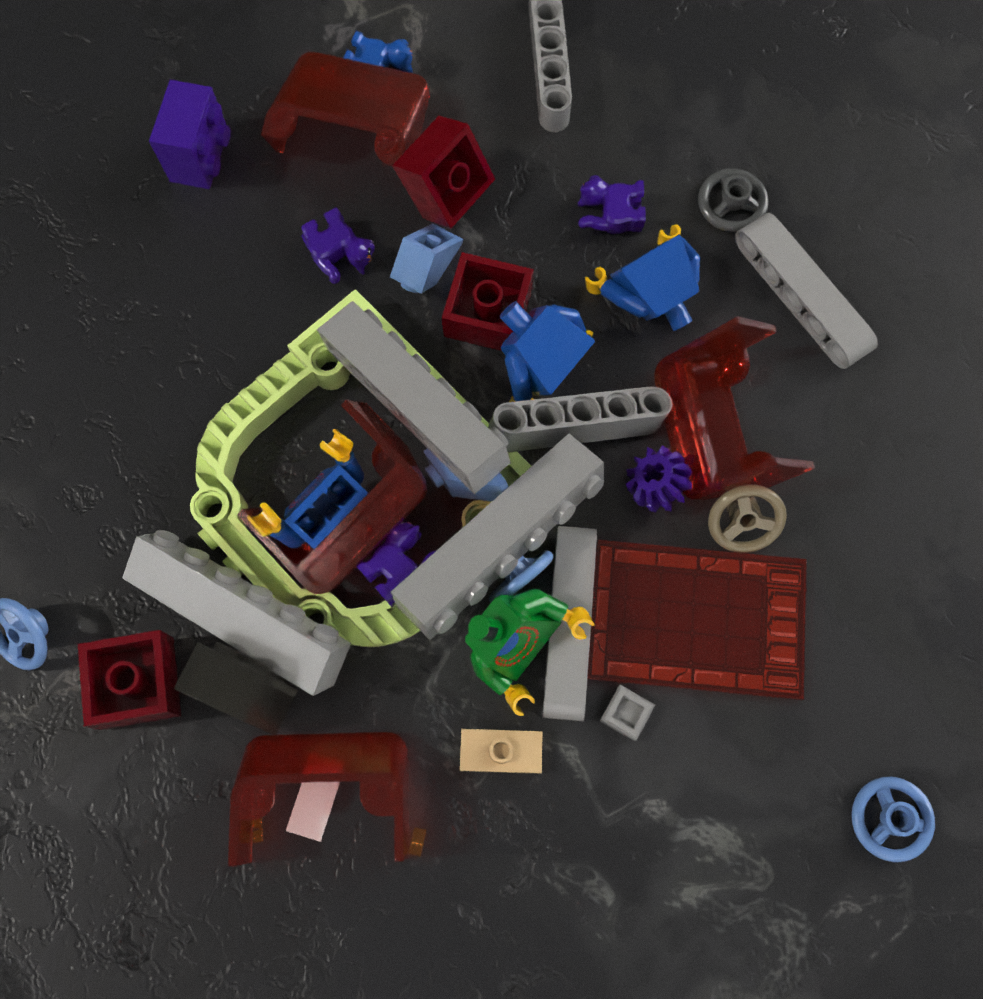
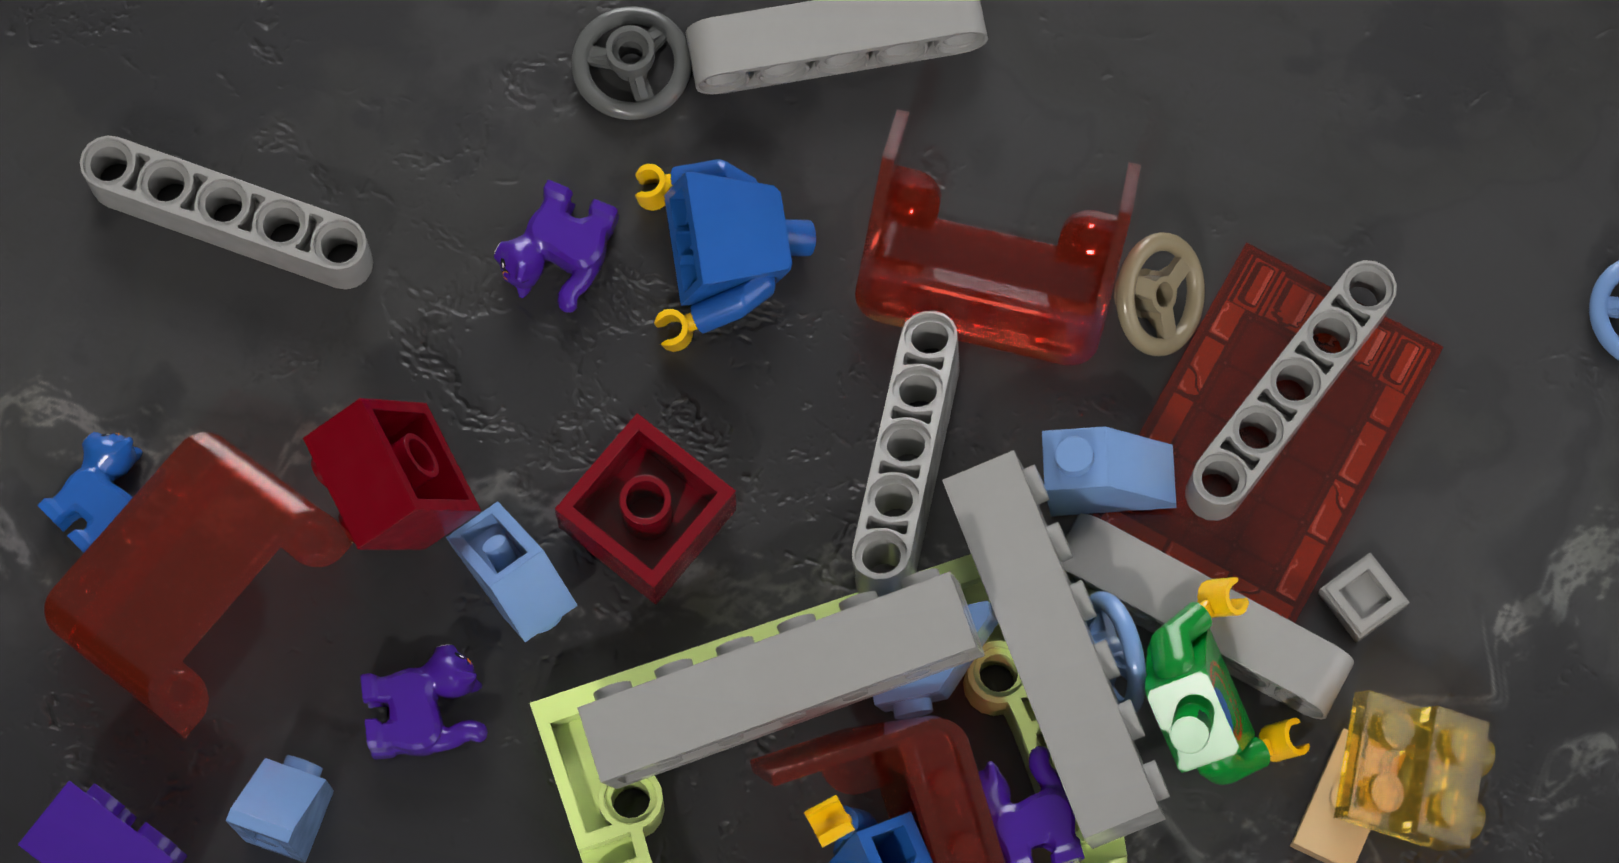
camera: 70 degrees left, 0 degrees up
(251, 200) = (282, 807): none -> medium blue slope
(532, 782) = (1414, 772): none -> clear yellow plate
(542, 348) = (780, 461): blue torso -> none
(627, 531) = (1106, 471): none -> medium blue slope
(655, 493) = (1027, 375): dark purple gear -> none
(747, 611) = (1303, 364): none -> light grey beam

